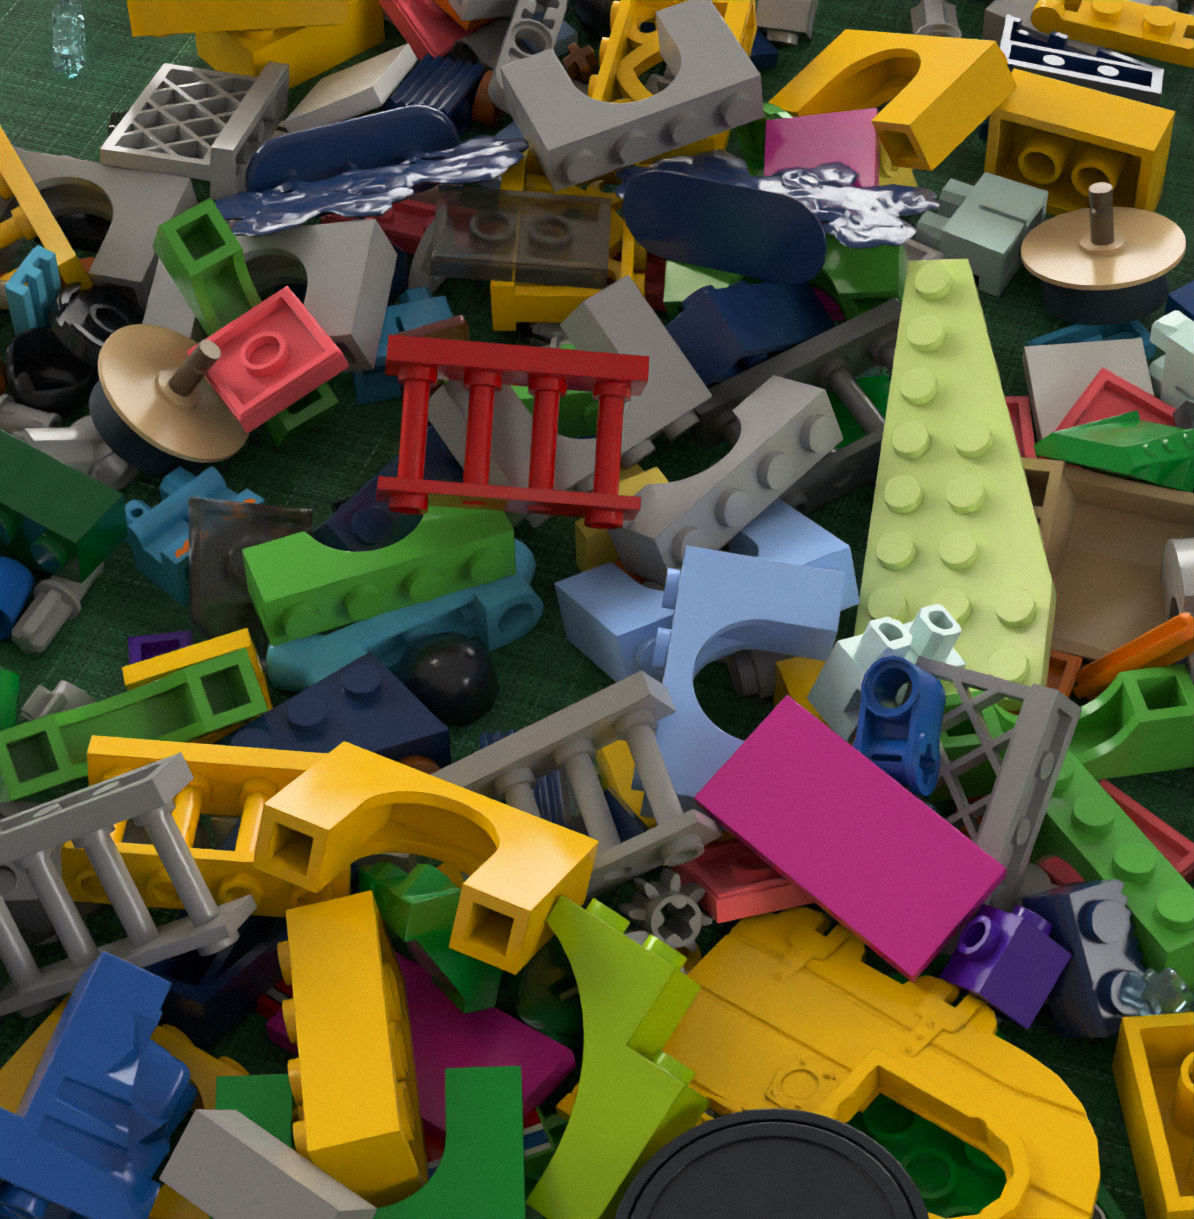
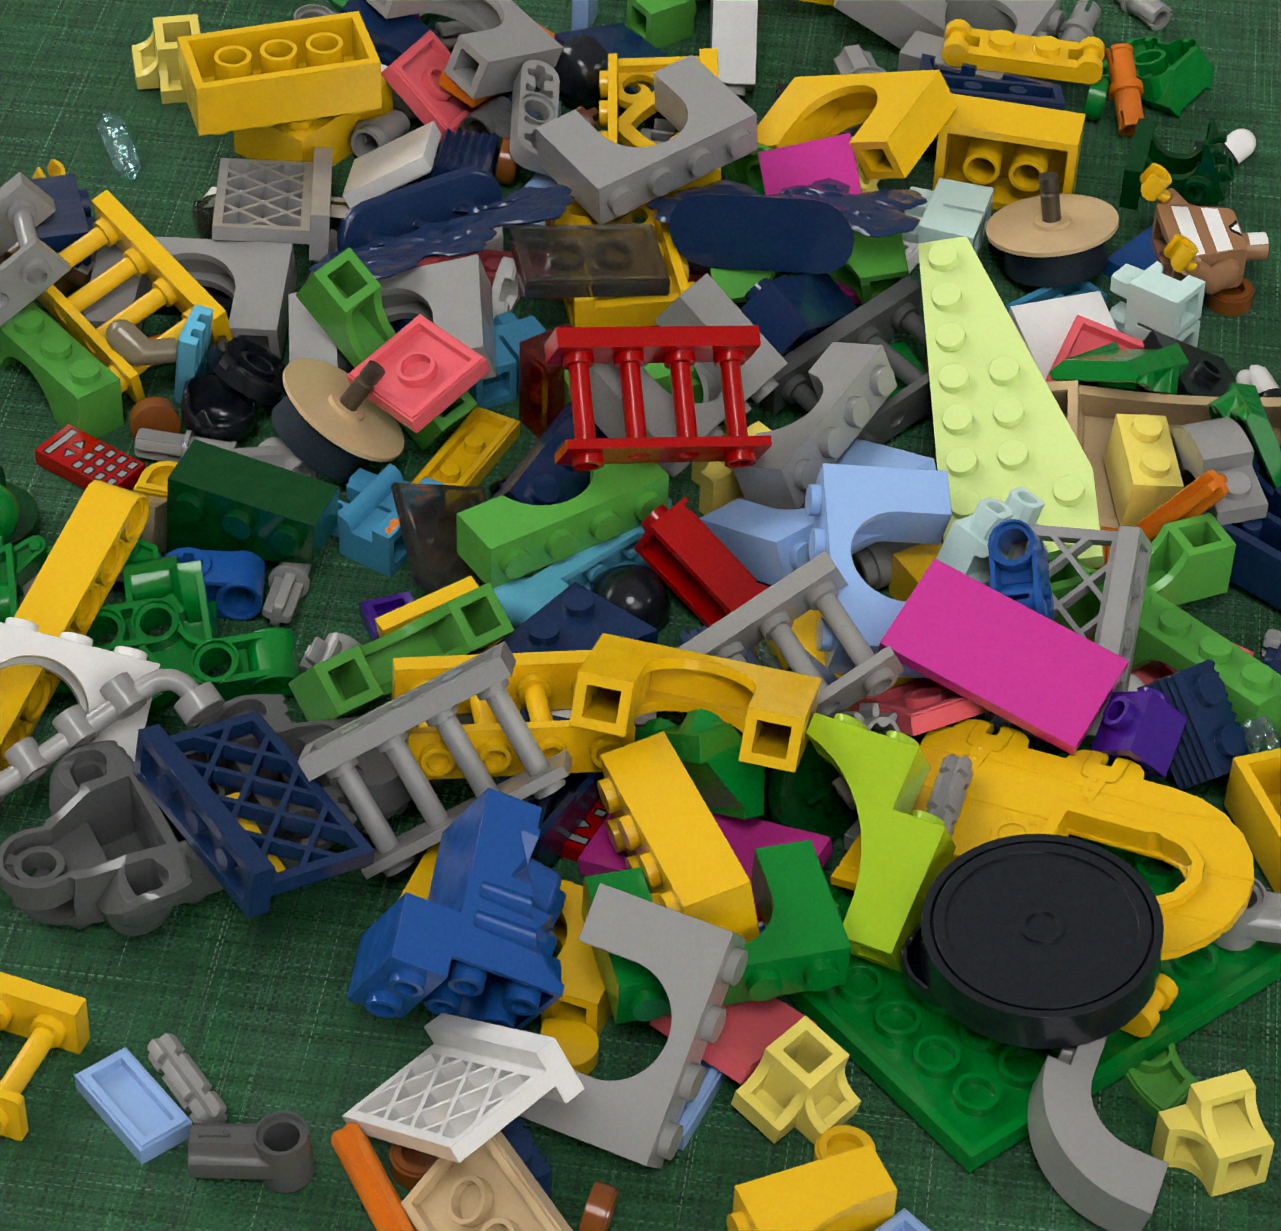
camera: 15 degrees left, 5 degrees down
(326, 459) = (472, 449): none -> yellow tile
(357, 46) = (378, 131): none -> light grey cone
(527, 642) = (695, 563): none -> red window
(729, 1022) = (949, 789): none -> light grey axle
(1124, 582) = (1141, 466): none -> light yellow brick

